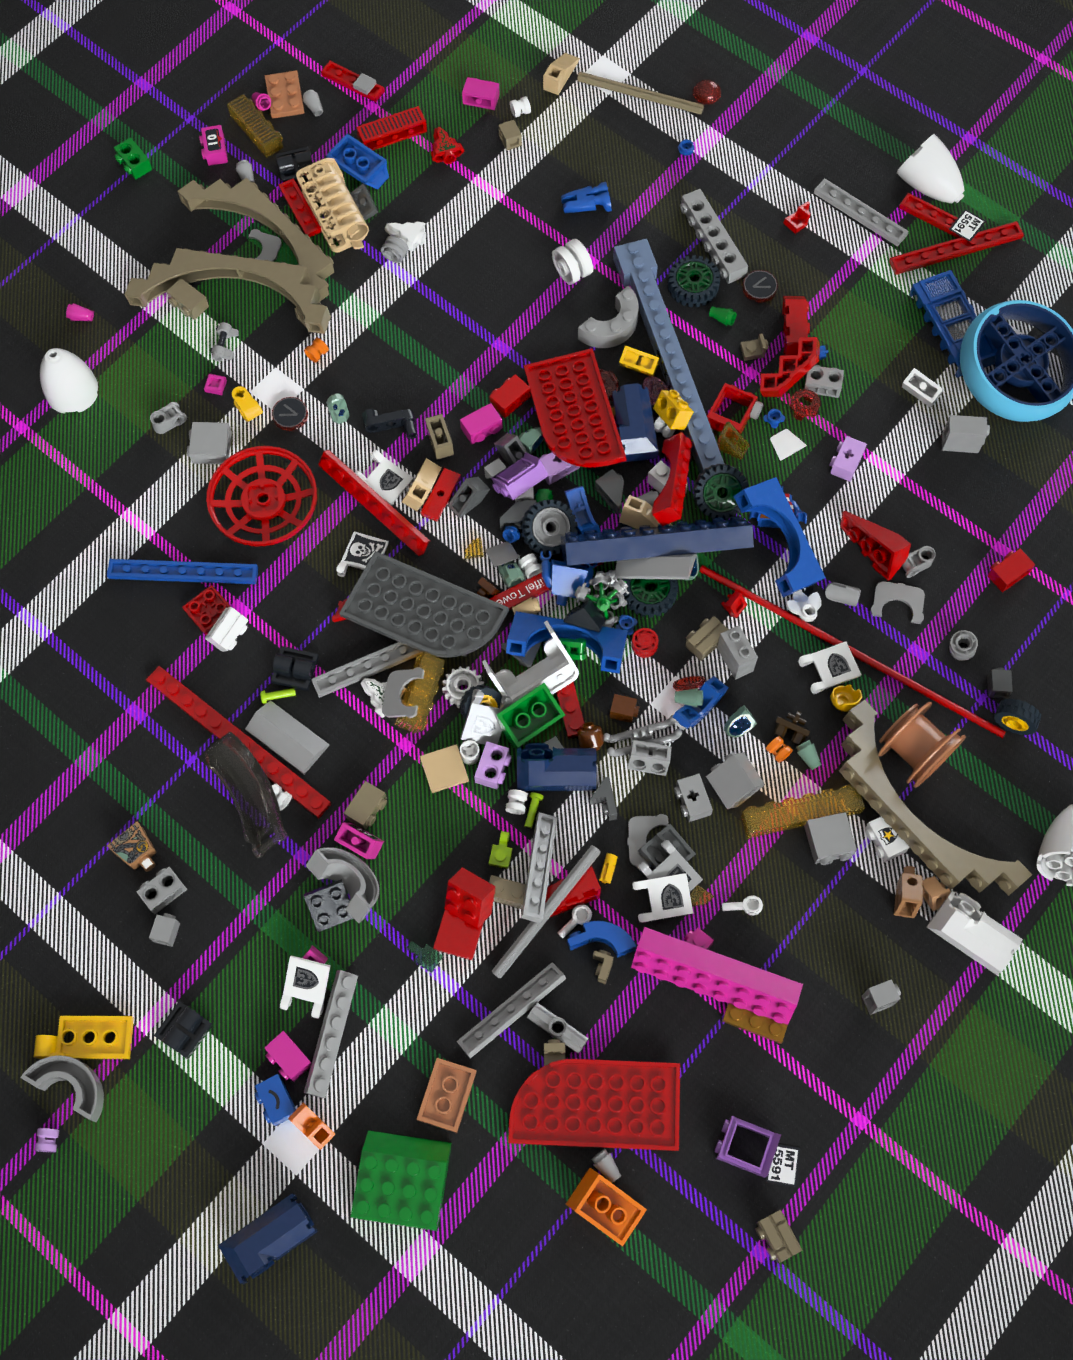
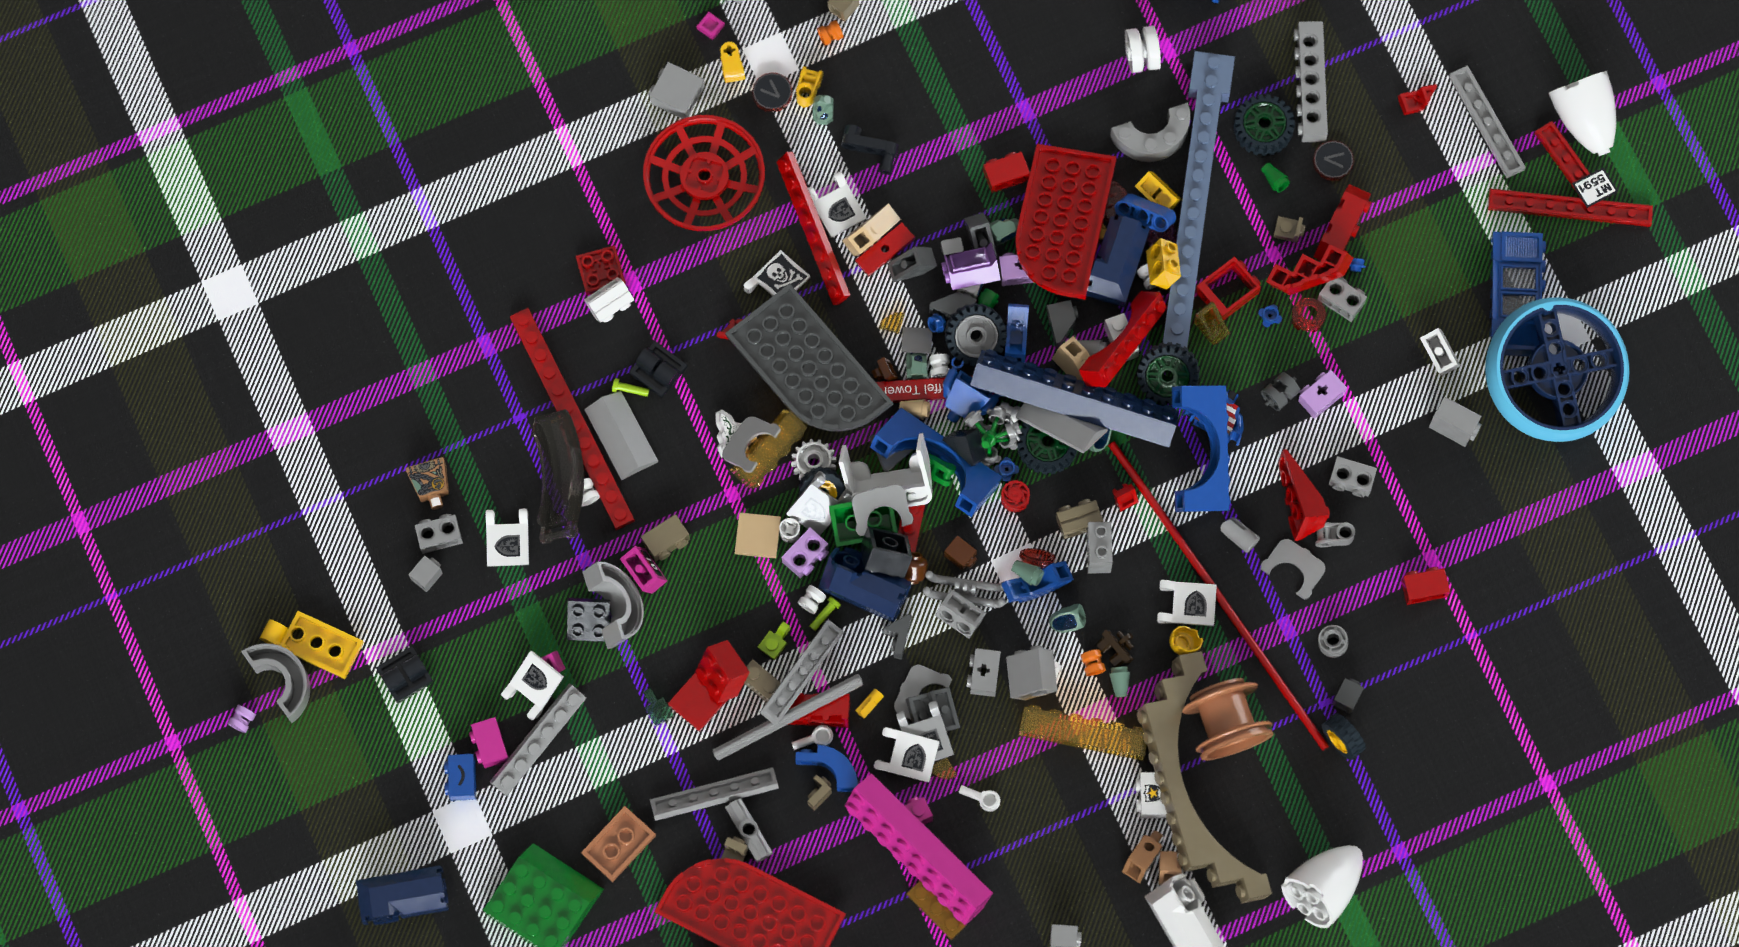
camera: 25 degrees right, 5 degrees up
(167, 417) = (647, 43): light grey piece -> none
(182, 571) = (592, 218): blue plate -> none
(227, 871) = (507, 542): none -> white flag
(311, 1126) = (483, 815): orange brick -> none
(317, 395) = (808, 83): none -> yellow piece
(363, 668) = (724, 399): light grey plate -> none
(439, 436) = (911, 186): dark tan brick -> none
(481, 423) = (962, 190): dark pink brick -> none
(543, 684) = (889, 496): none -> light grey piece
(563, 732) = (886, 552): none -> black brick
(645, 373) = (1154, 211): none -> blue beam
(756, 410) = (1255, 299): light grey tile -> none
(786, 444) = (1269, 349): white sticker -> none
(802, 603) = (1196, 526): white plate -> none
(814, 469) = (1282, 389): none -> dark grey wheel
(830, 838) = (1097, 771): light grey piece -> none
(905, 507) = (1353, 471): none -> light grey brick

